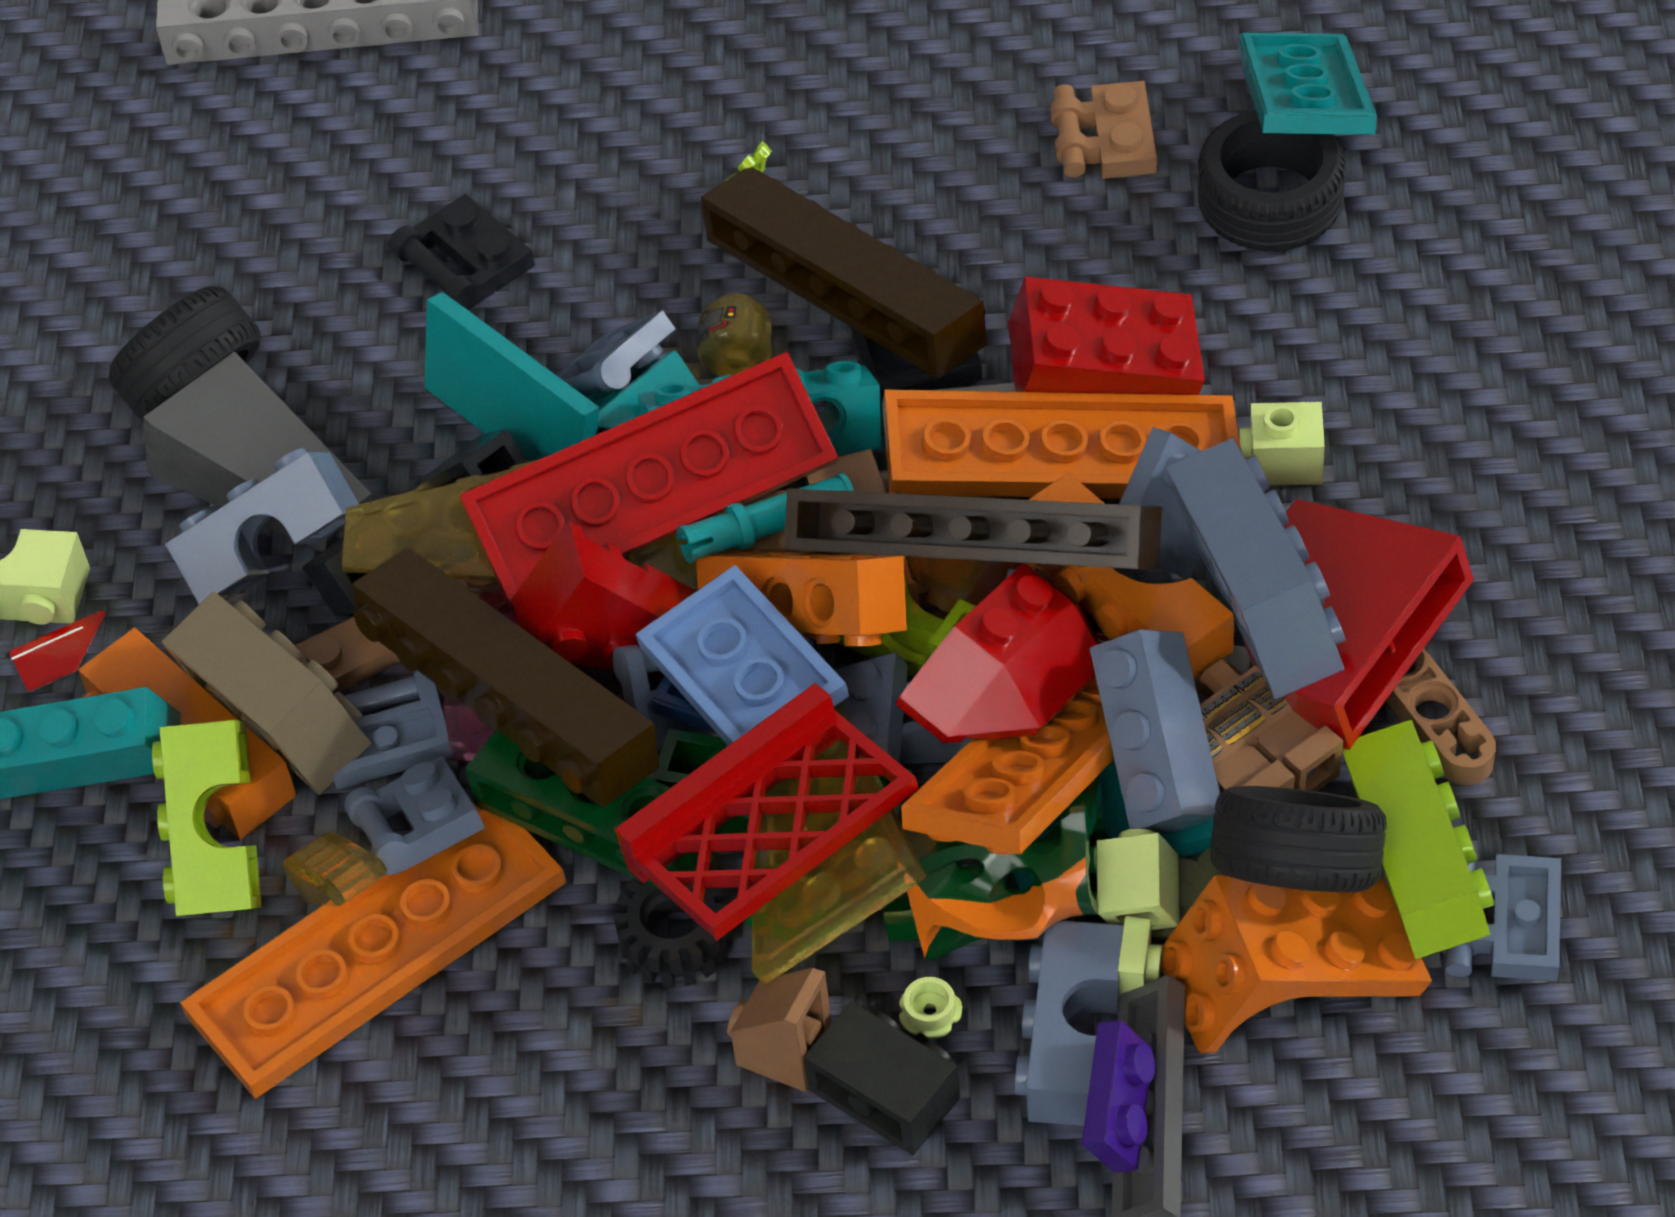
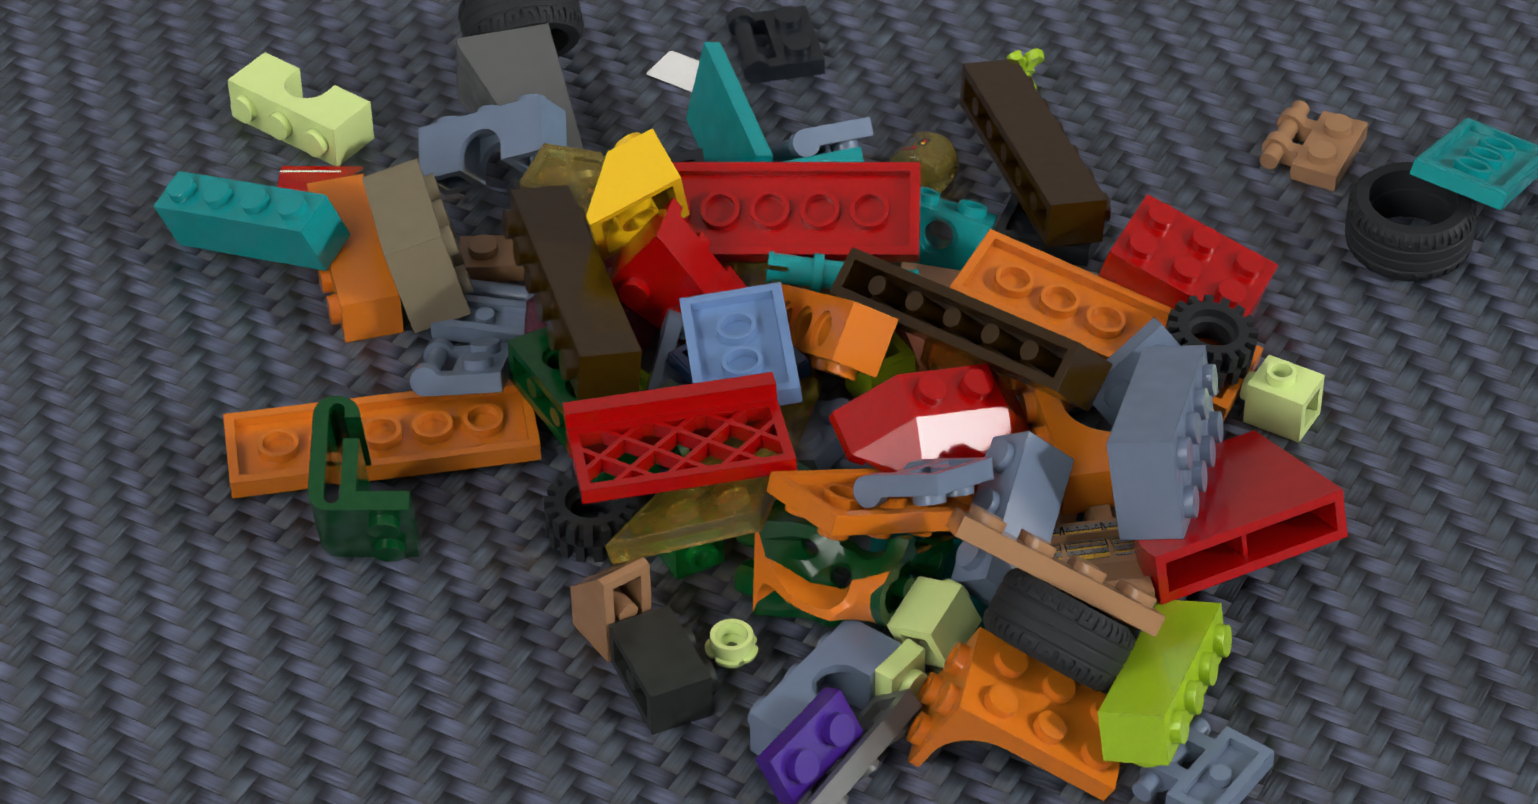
camera: 25 degrees right, 10 degrees down
(194, 766) = (326, 264): lime arch -> none
(332, 870) = (382, 375): clear yellow slope -> none
(380, 332) = (676, 70): none -> white sticker
(463, 1061) = (357, 519): none -> dark green piece
(514, 526) = (631, 191): none -> yellow slope
(1080, 736) = (925, 480): none -> sand blue plate
(1190, 393) = (1221, 324): none -> black tyre
(1273, 775) = (1074, 576): none -> medium nougat plate
(1431, 684) = (1267, 601): medium nougat beam -> none

